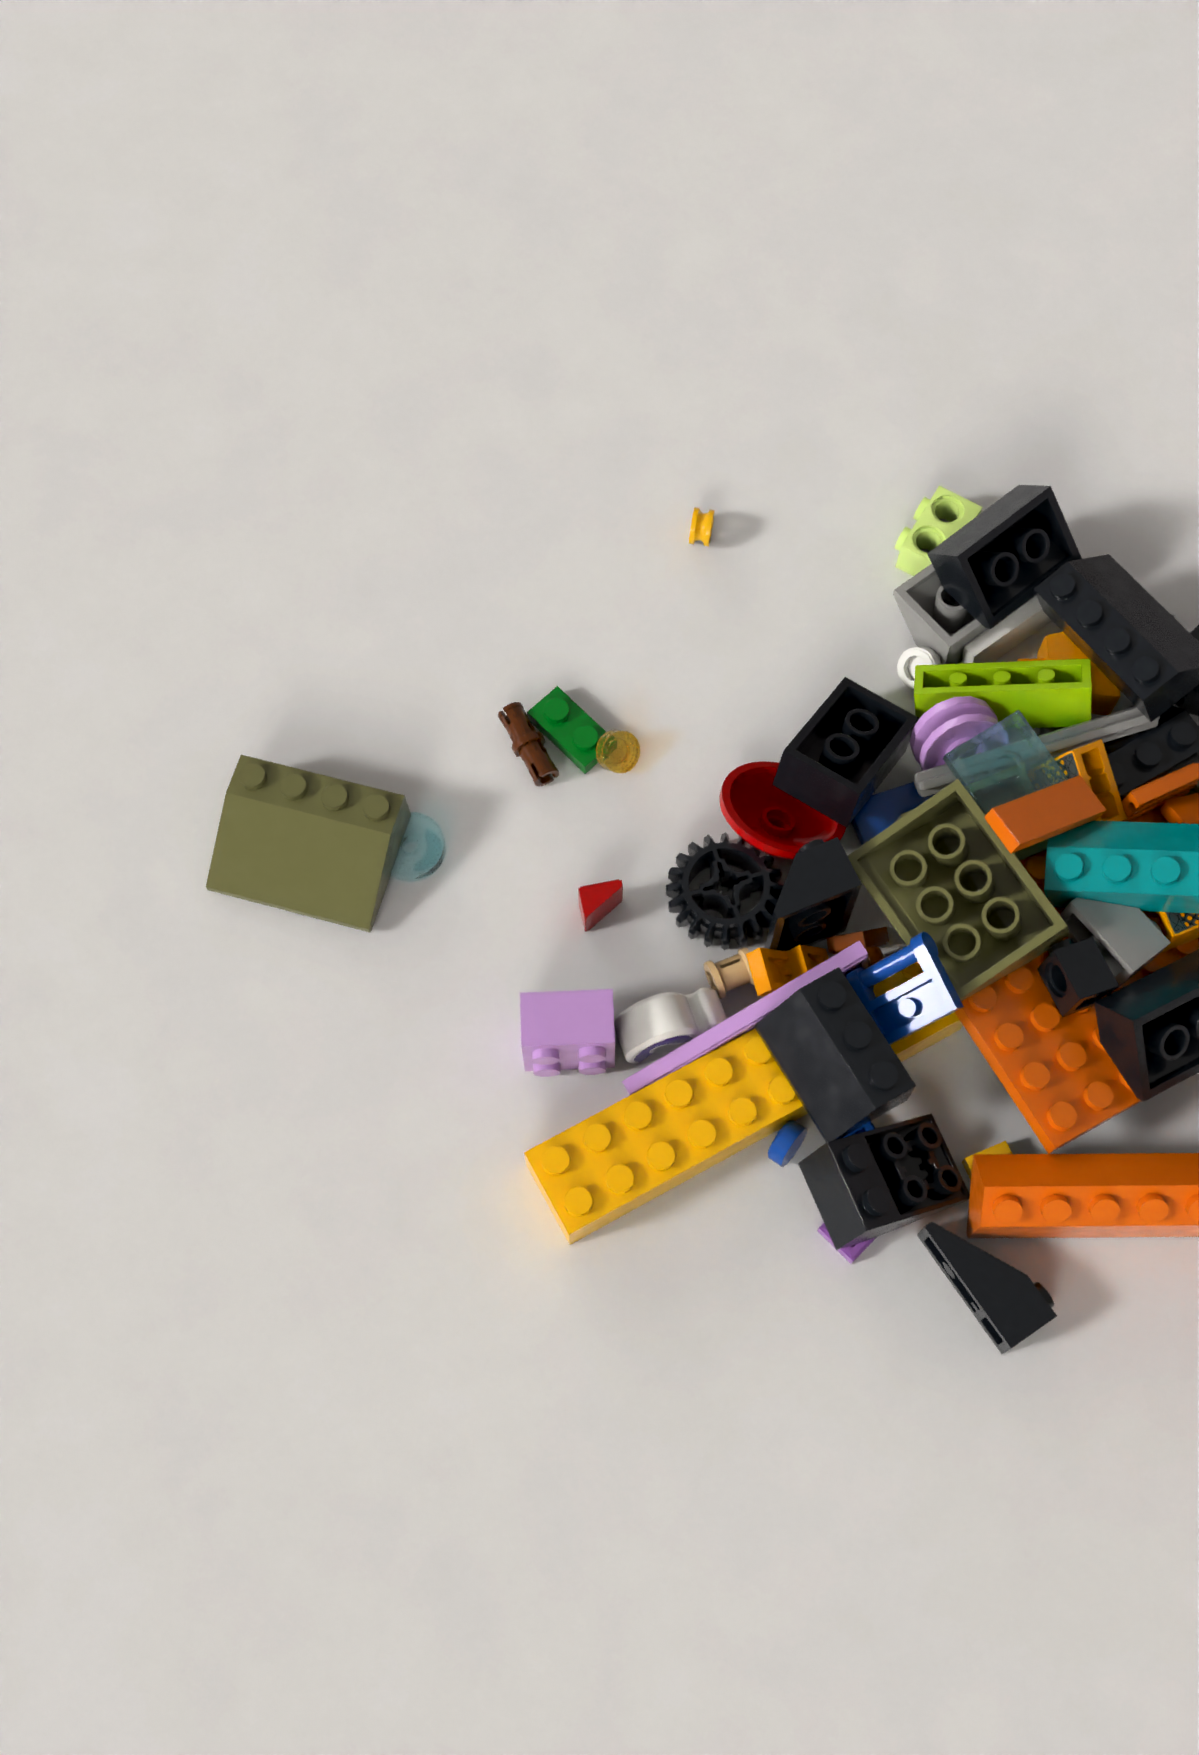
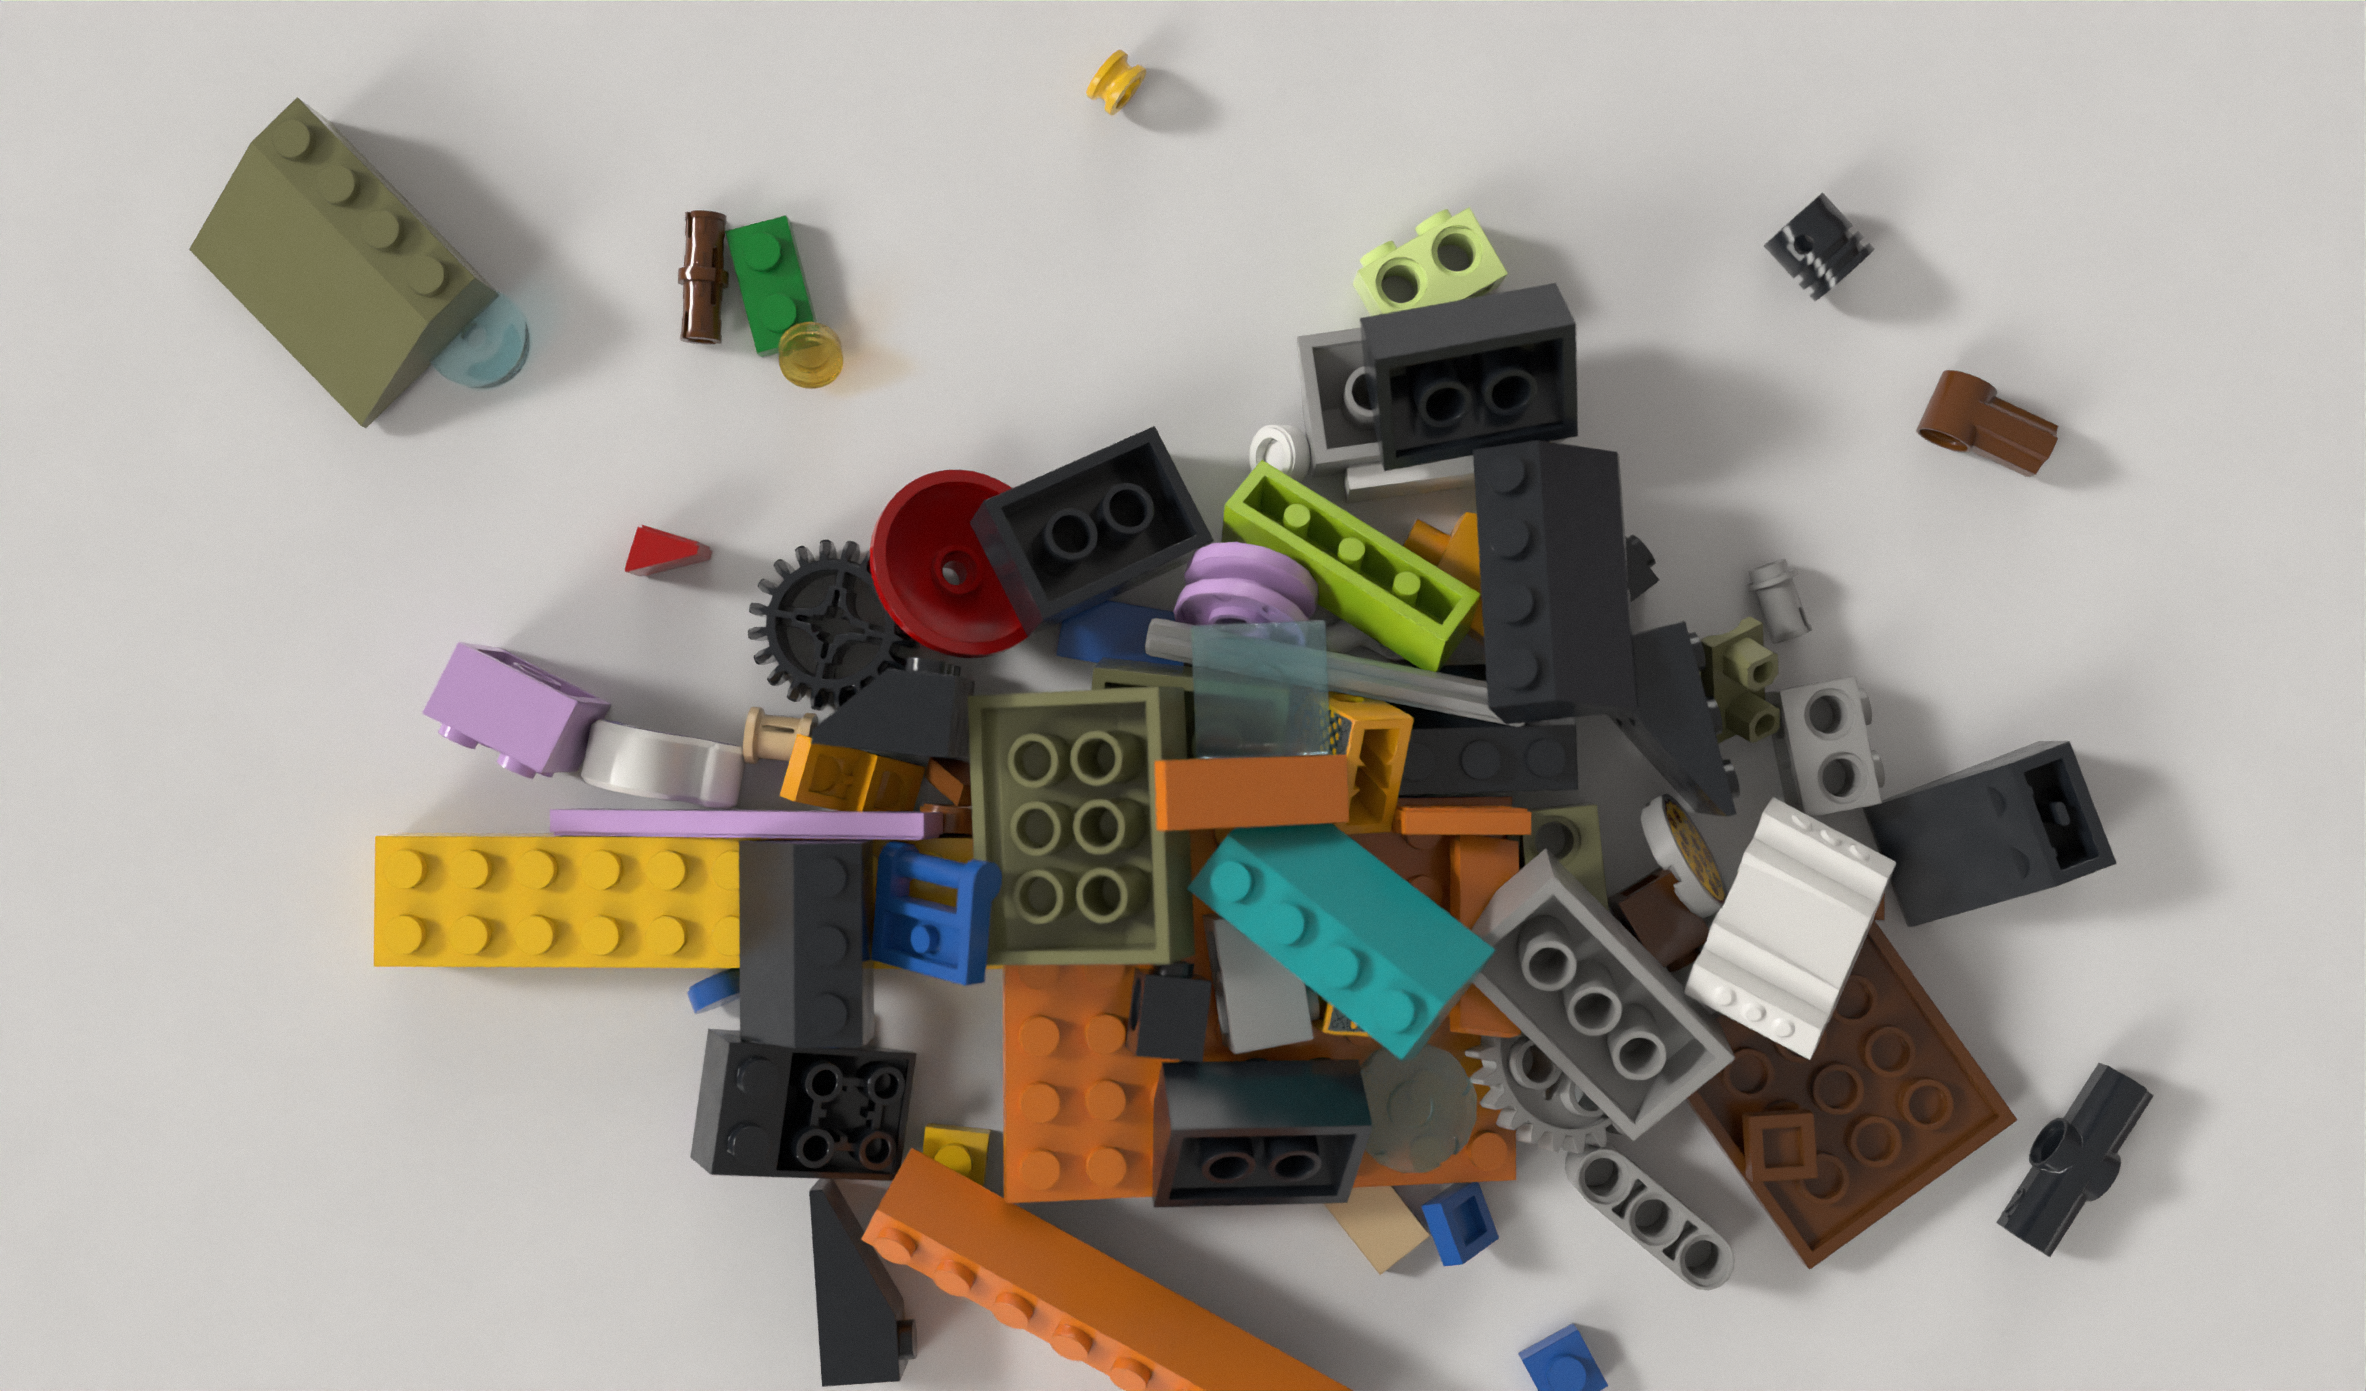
camera: 25 degrees right, 20 degrees up
(1142, 422) = (1830, 252): none -> black piece

